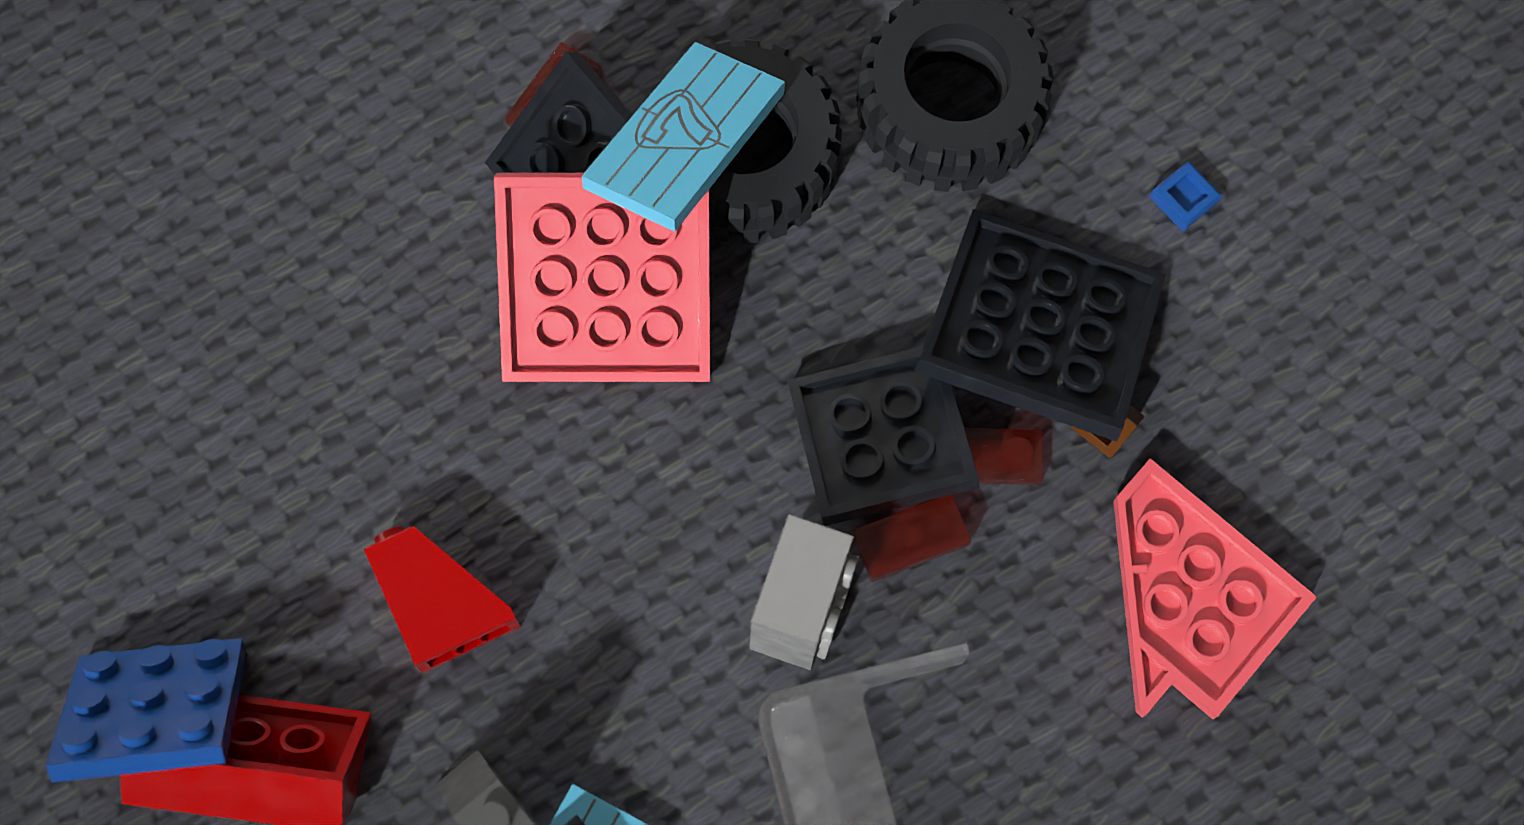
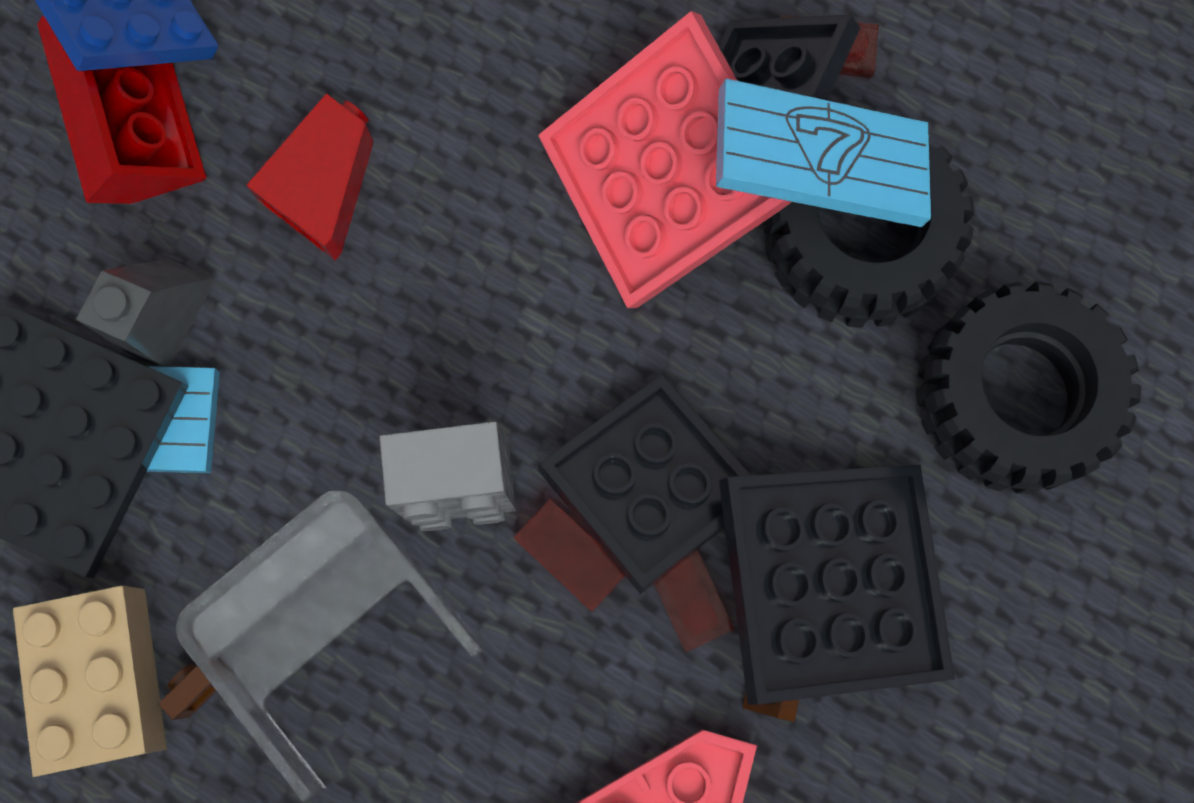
camera: 70 degrees right, 5 degrees up
(1185, 196) = (1048, 664): blue tile -> none

